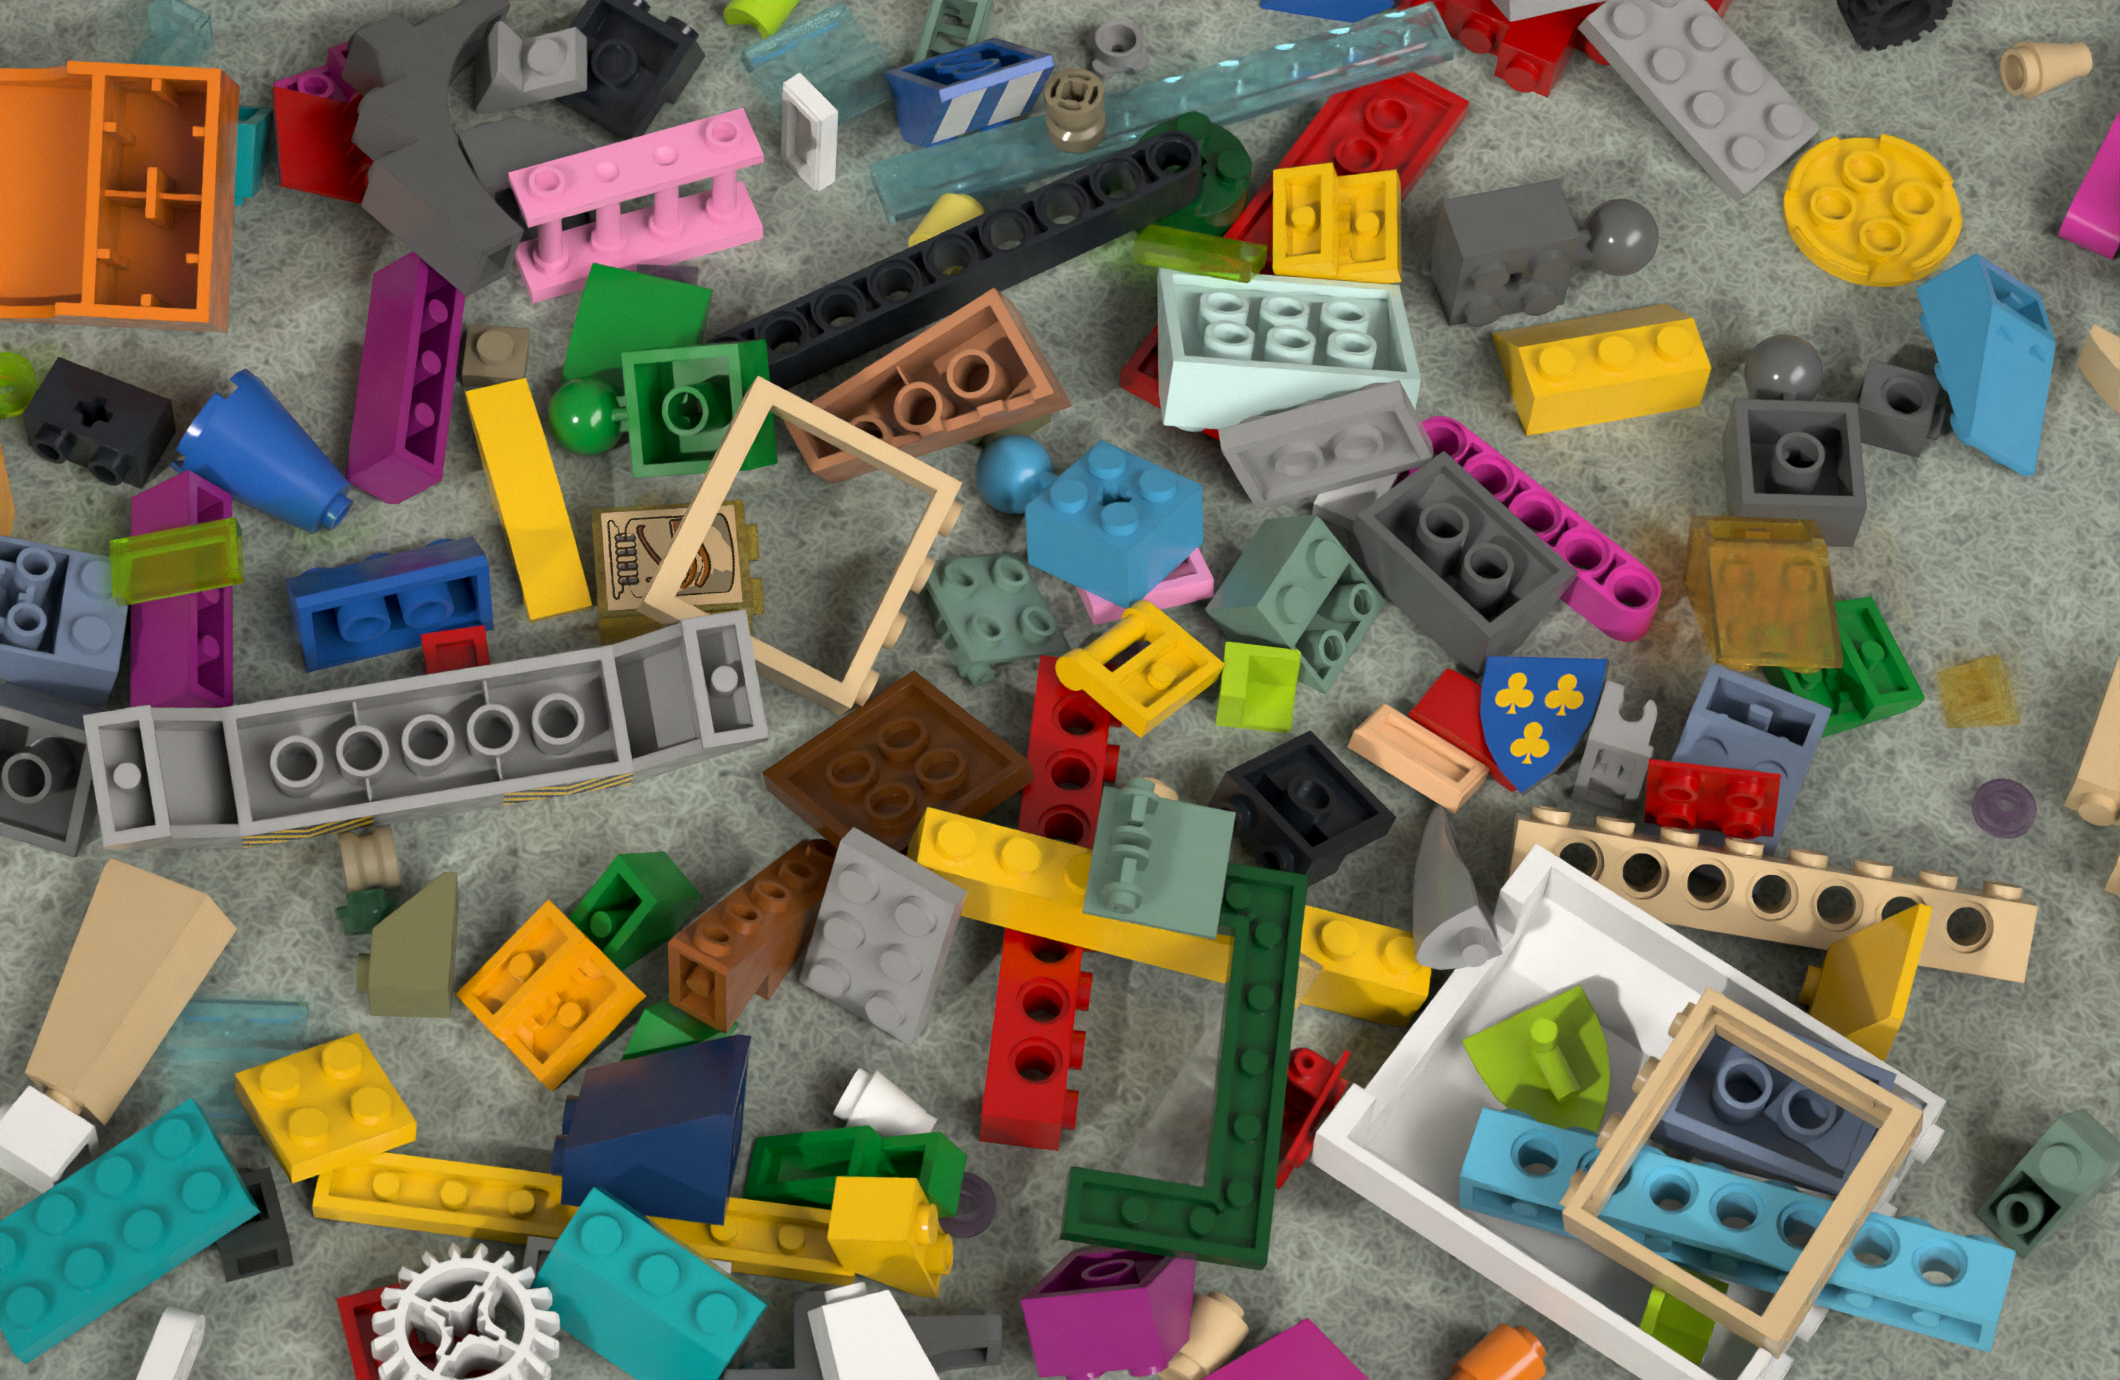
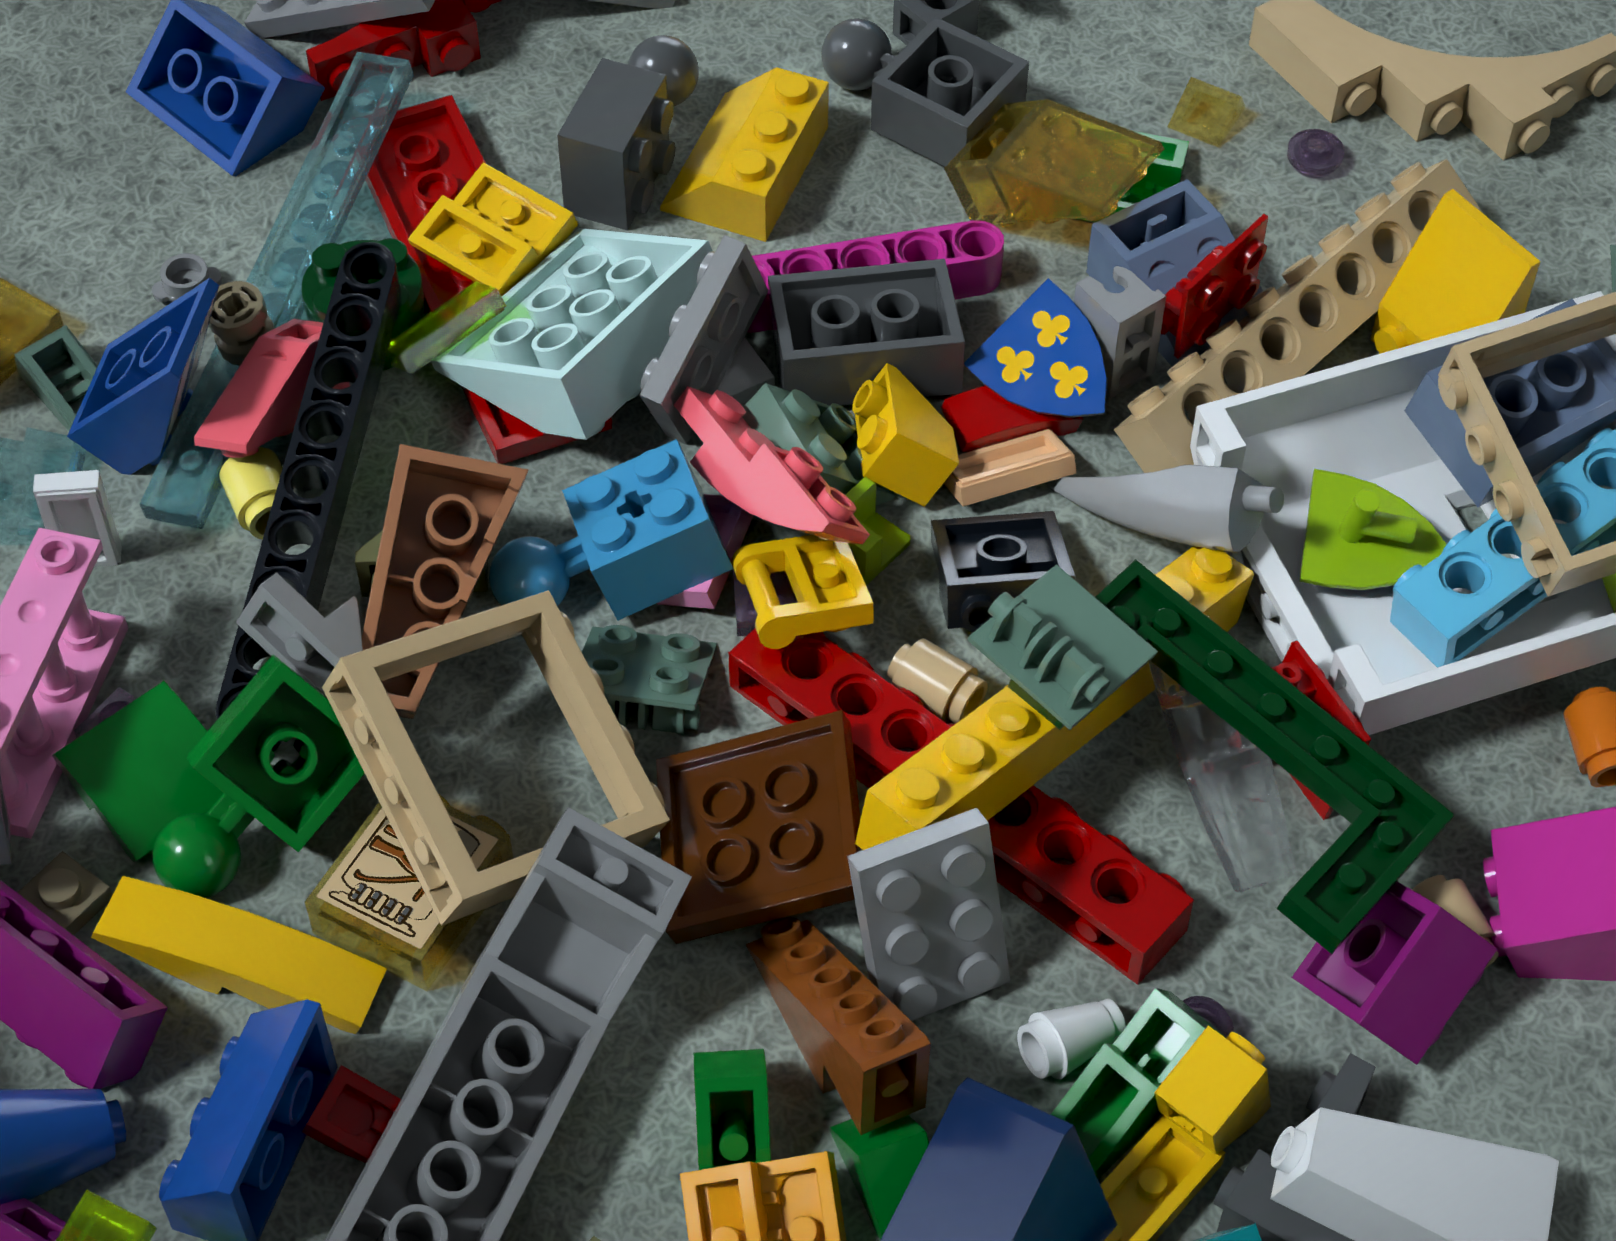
camera: 50 degrees left, 5 degrees down
(801, 331) = (298, 633): none -> light grey slope
(1007, 170) = (264, 391): none -> coral slope
(1217, 565) = (764, 478): none -> coral slope
(1370, 657) = (902, 437): none -> yellow slope

